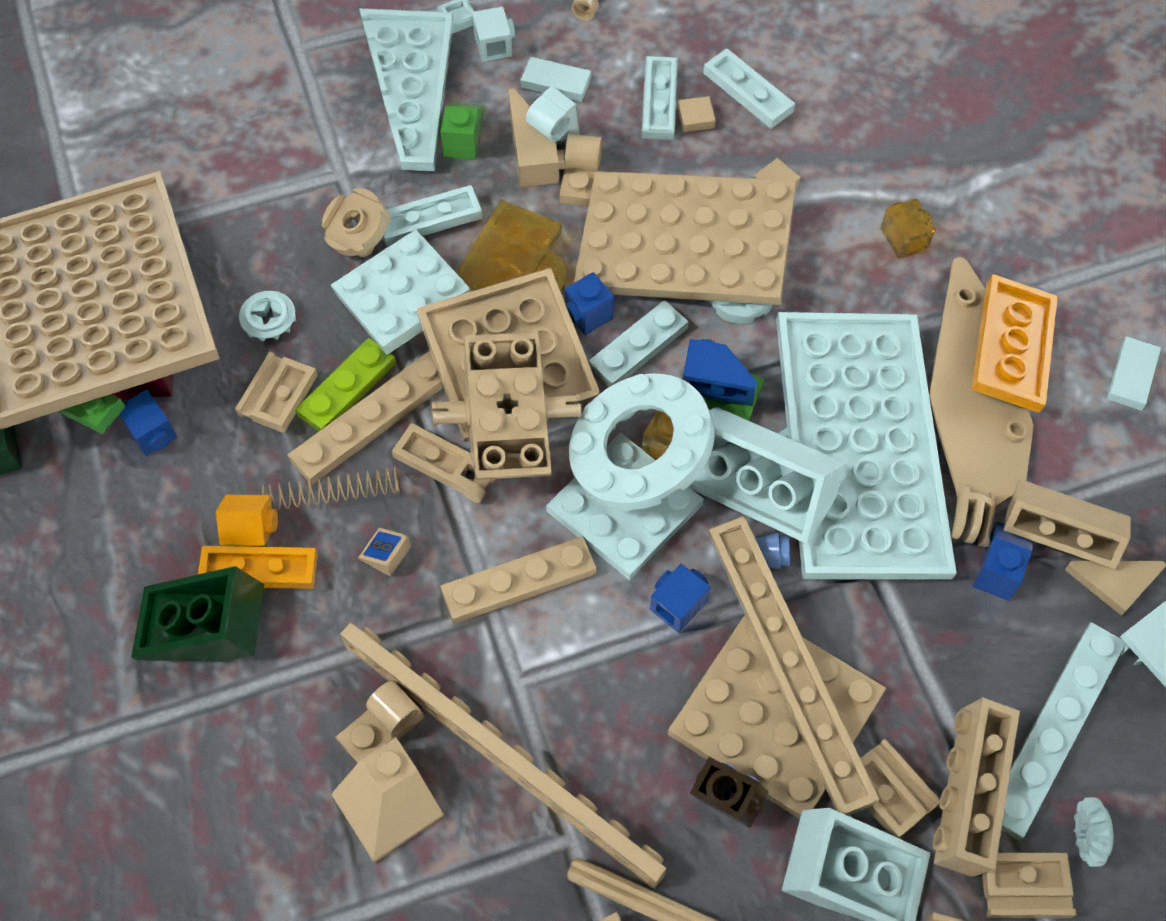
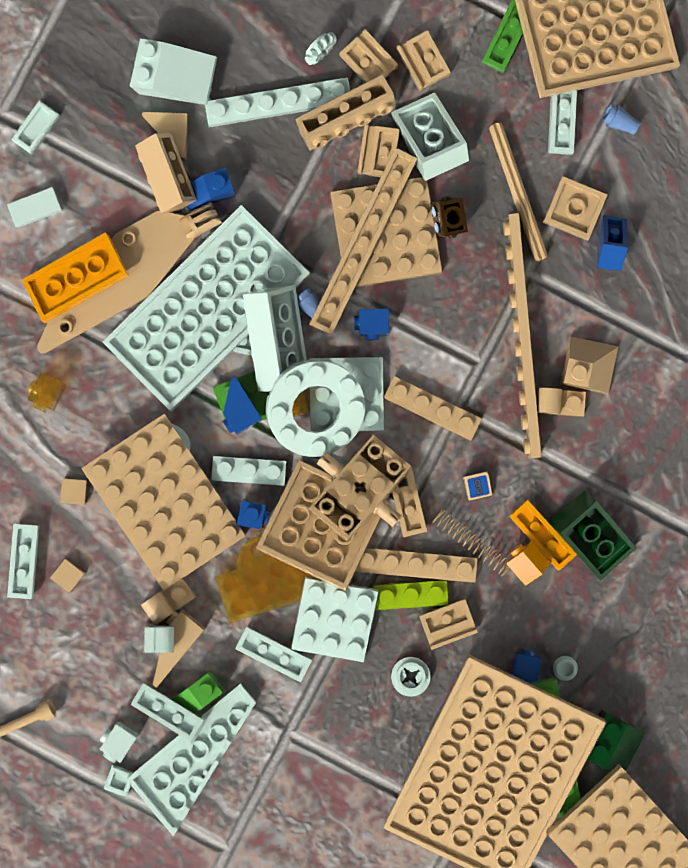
camera: 135 degrees left, 25 degrees up
(101, 465) = (565, 668): none -> light aqua plate
(366, 234) = (328, 692): tan plate -> none
(471, 85) = (168, 712): none -> light aqua plate
(567, 79) = (115, 677): light aqua tile -> none
(659, 98) = (73, 607): light aqua tile -> none

